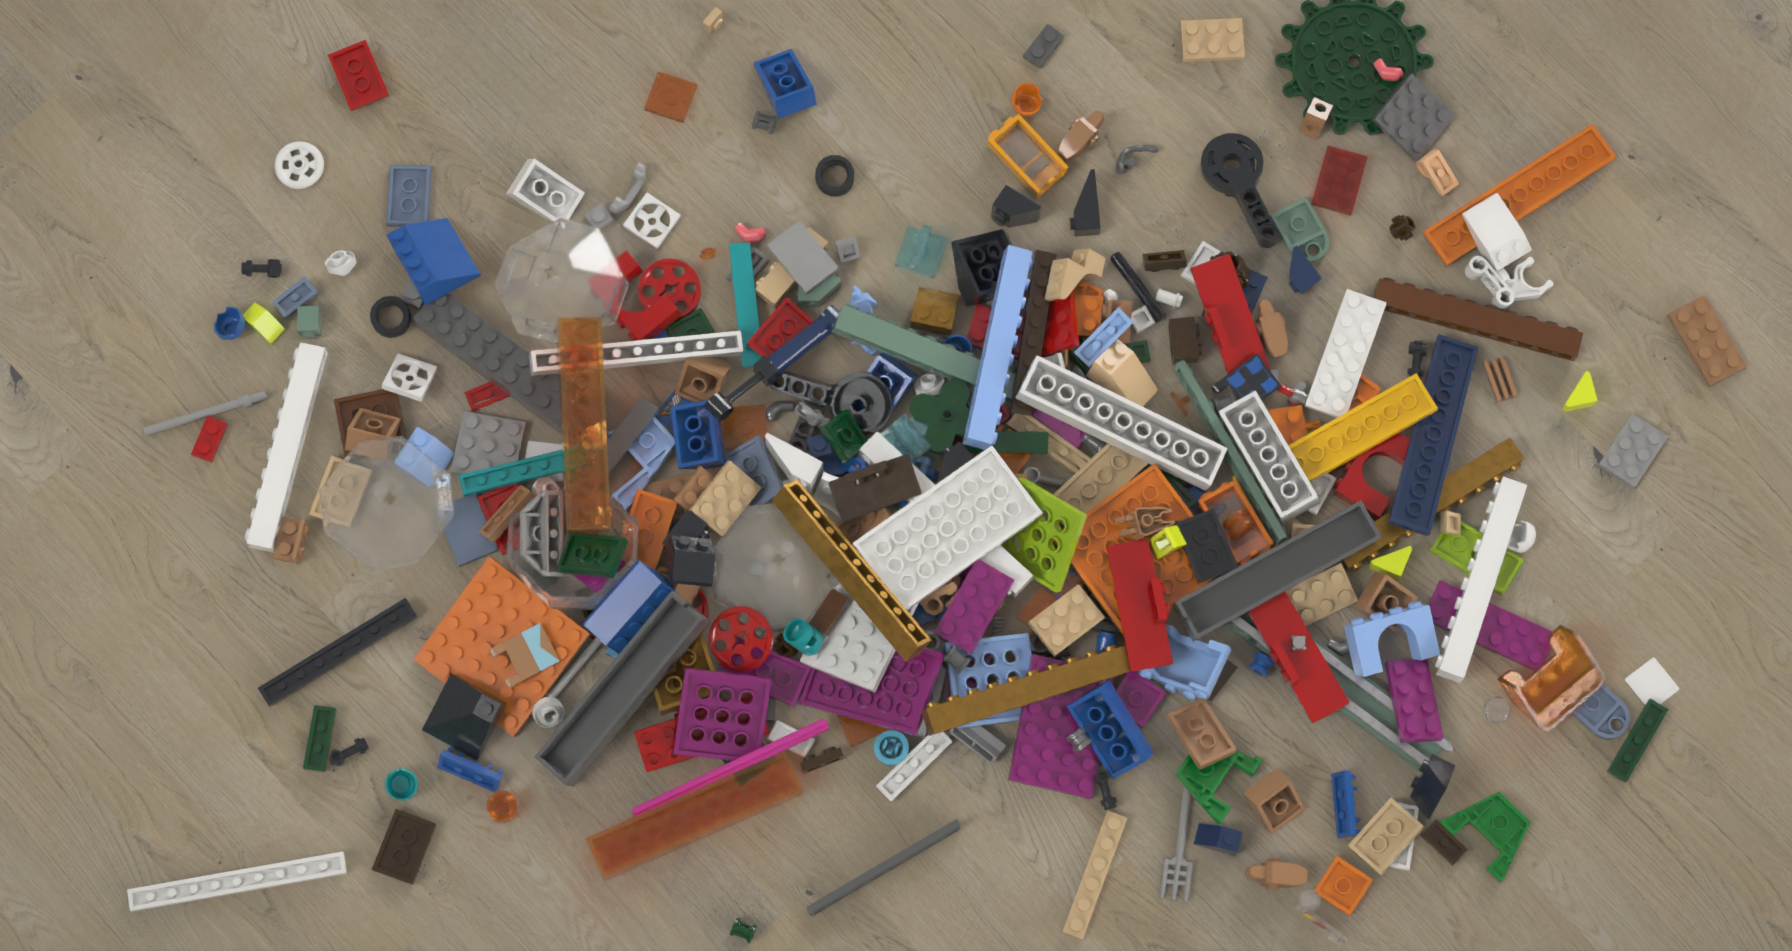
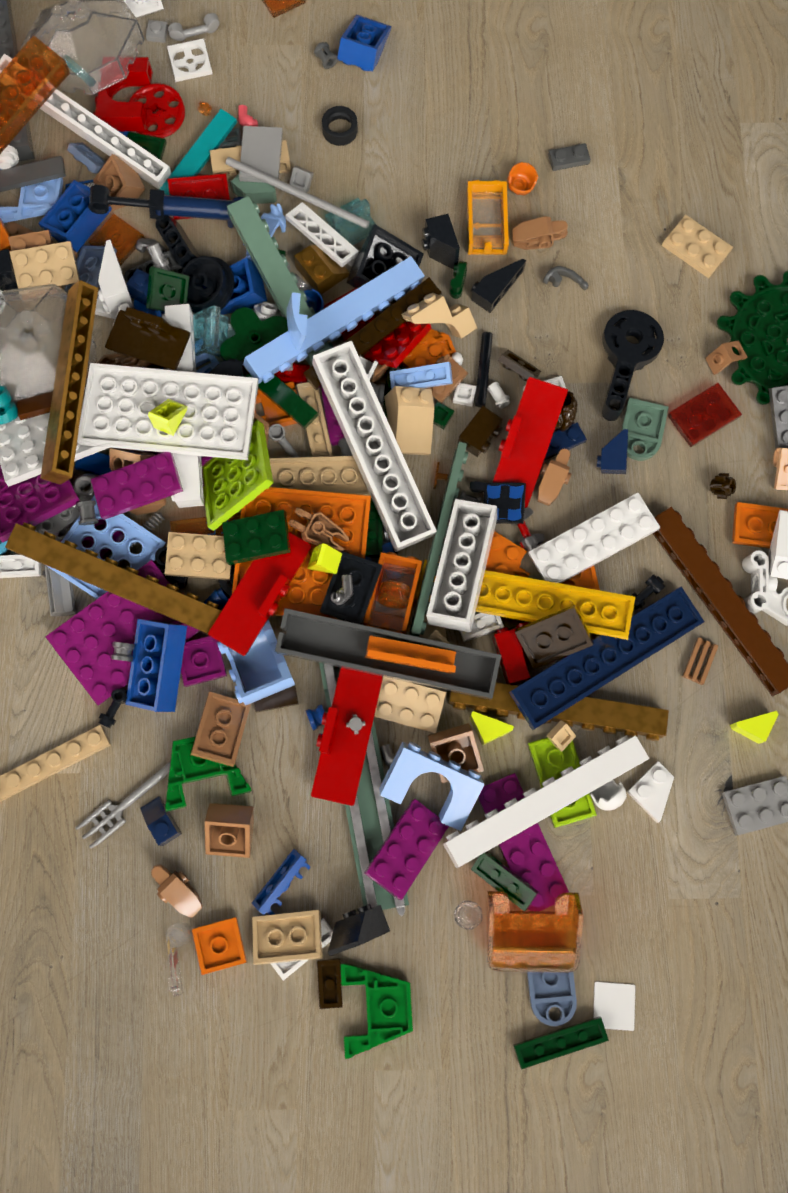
camera: 40 degrees right, 0 degrees up
(604, 314) = (79, 71): none -> clear light blue tile
(655, 378) = (86, 156): none -> sand blue plate
(866, 266) = (297, 192): none -> light grey piece
(913, 280) = (325, 233): none -> white fence
(957, 531) = (167, 416): none -> neon yellow slope
(989, 381) = (296, 322): none -> light blue slope
(1048, 221) = (457, 283): none -> dark green plate
(1101, 568) = (256, 537): none -> dark green plate
(1206, 551) = (344, 592): none -> flat silver arm
(1294, 556) = (410, 654): none -> orange fence
(1383, 454) = (554, 636): none -> dark brown plate
(1499, 662) = (504, 880): none -> dark green plate
(1548, 506) = (653, 790): none -> white wing

